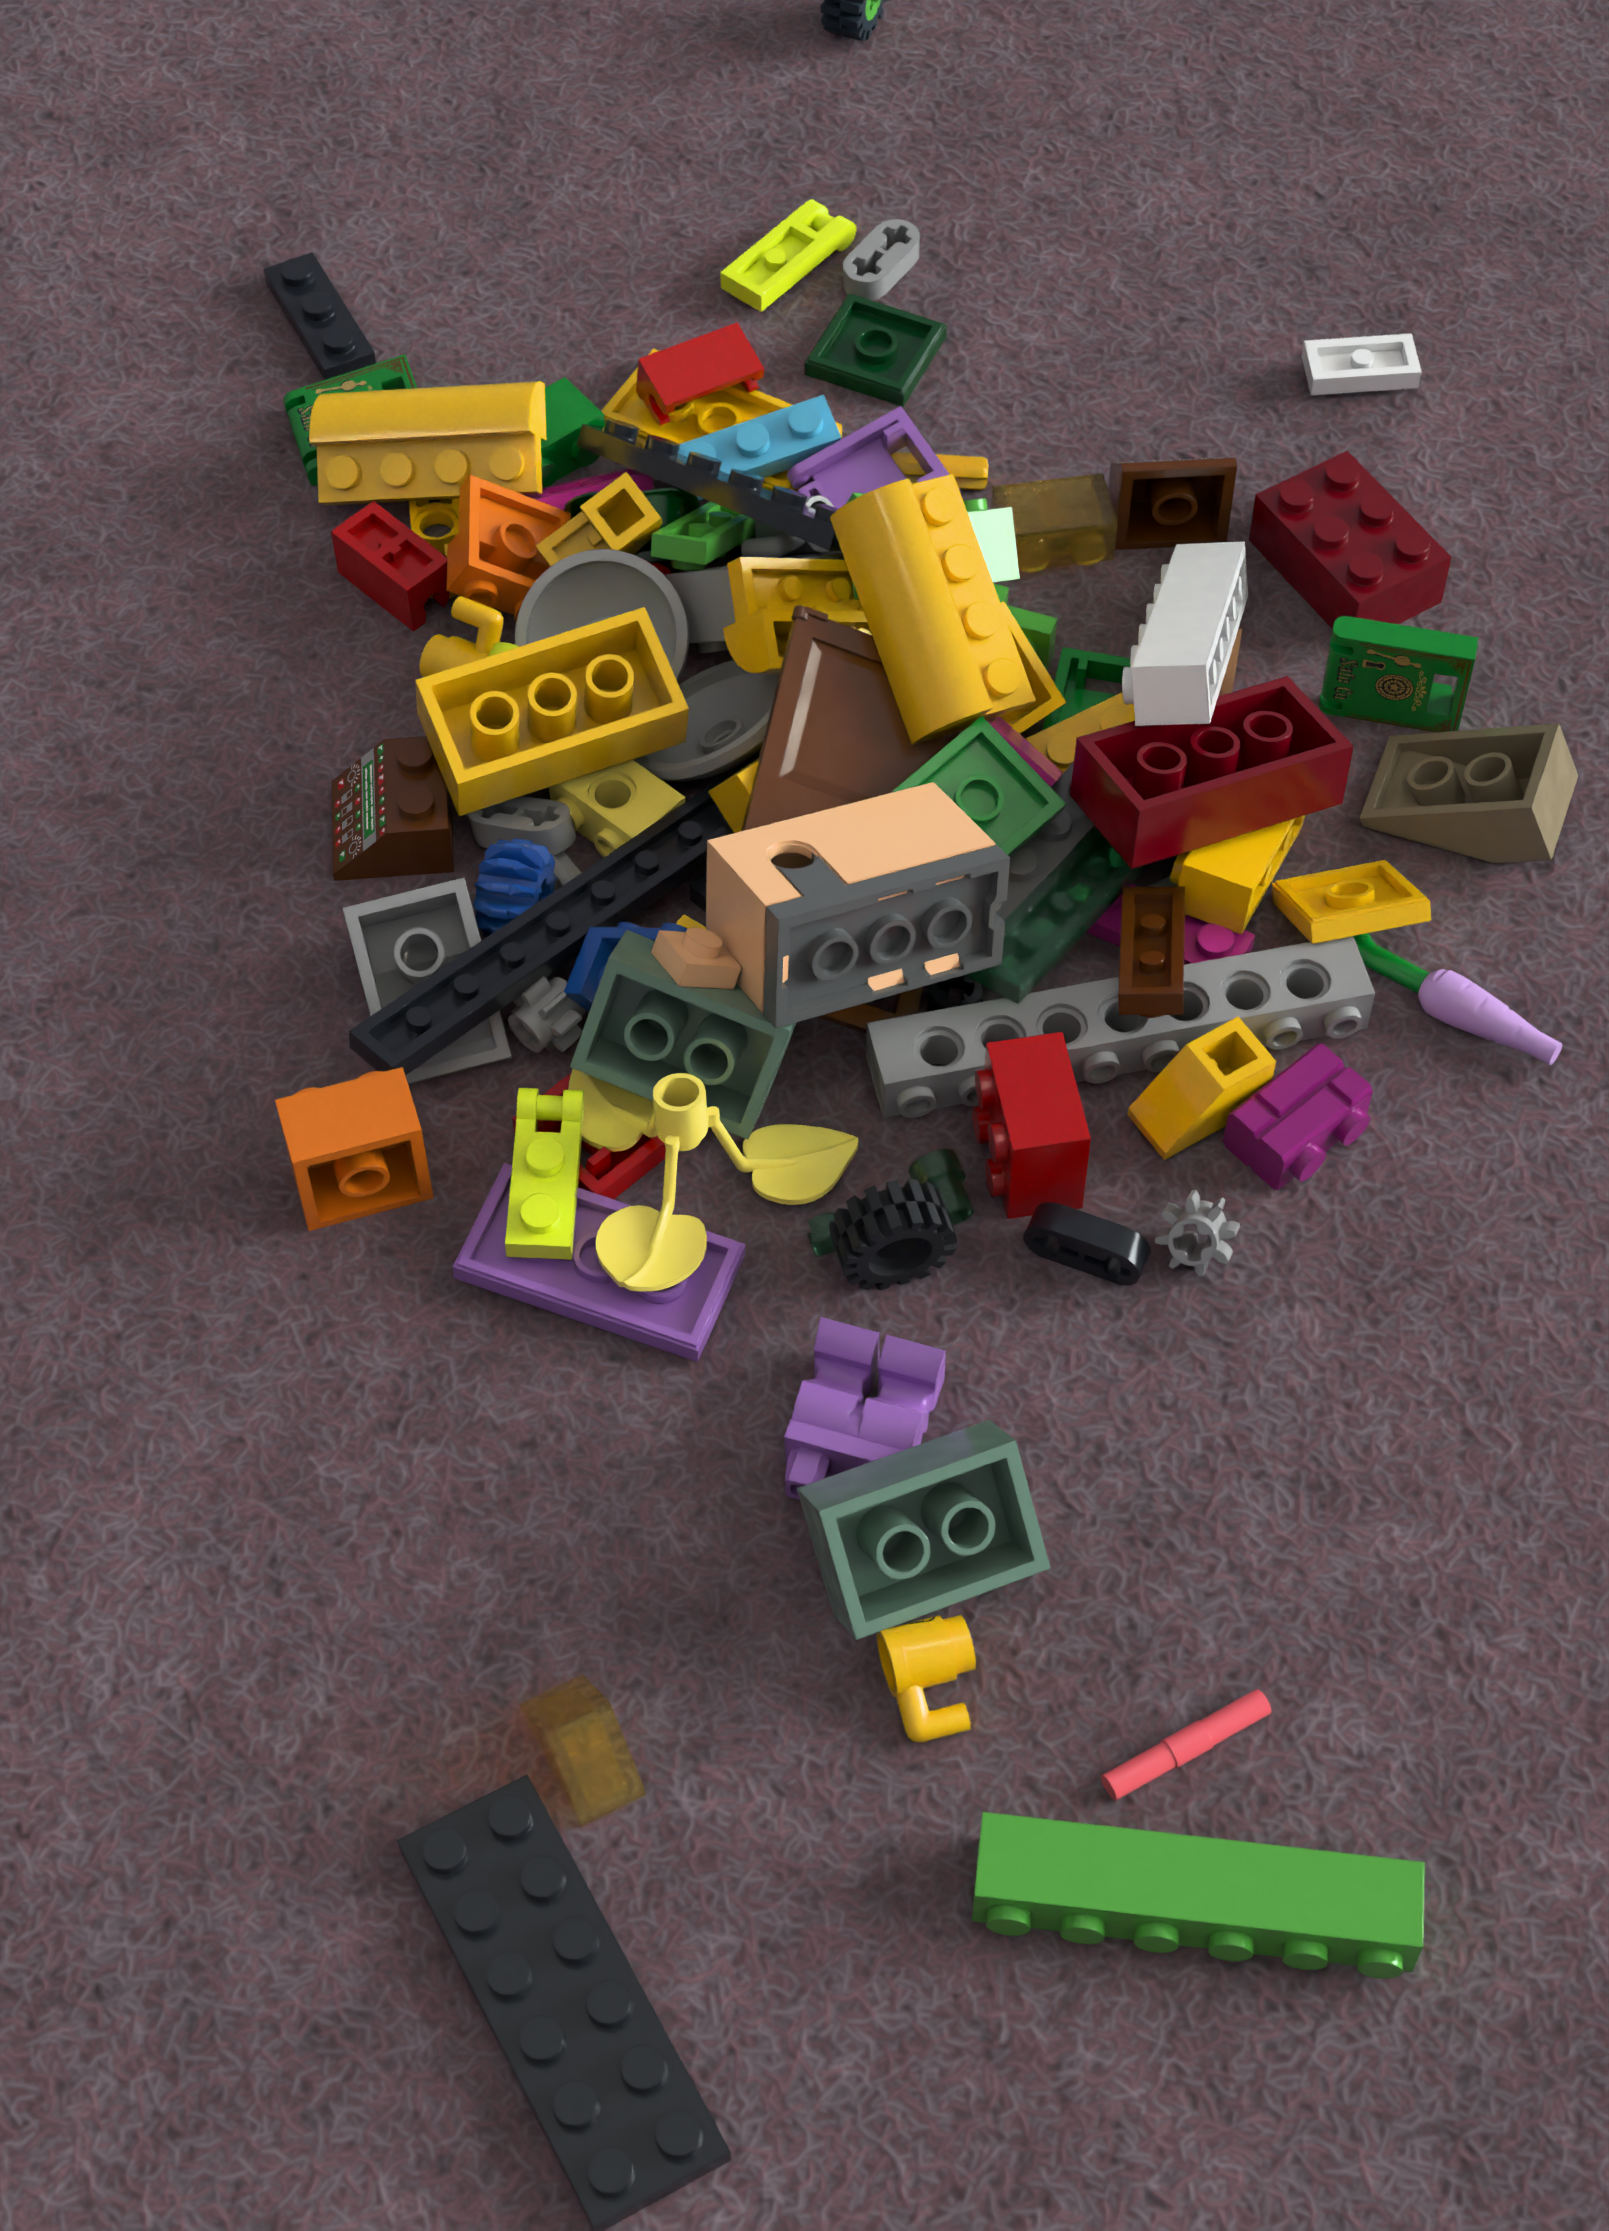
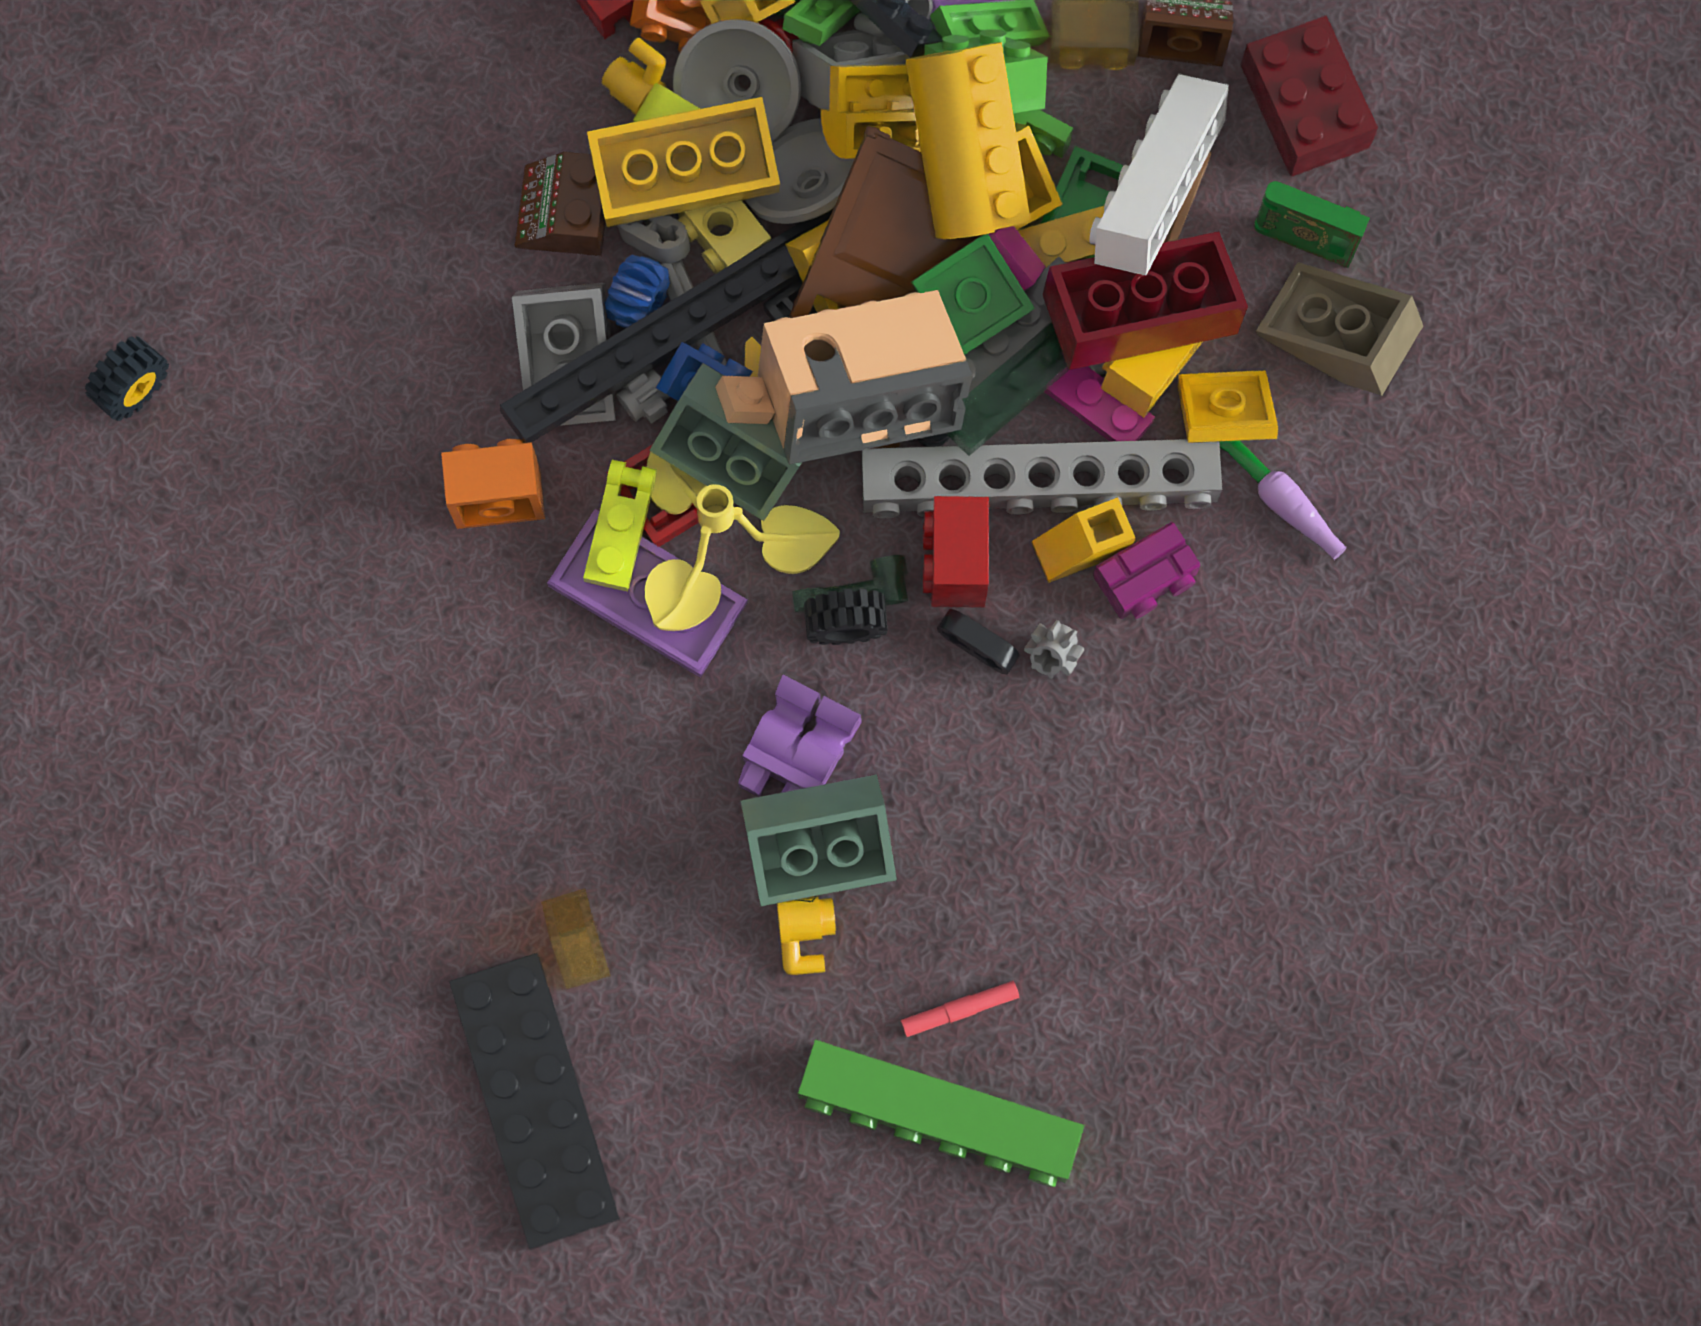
camera: 10 degrees right, 20 degrees up
(1152, 951) = (1071, 432): reddish brown plate -> none

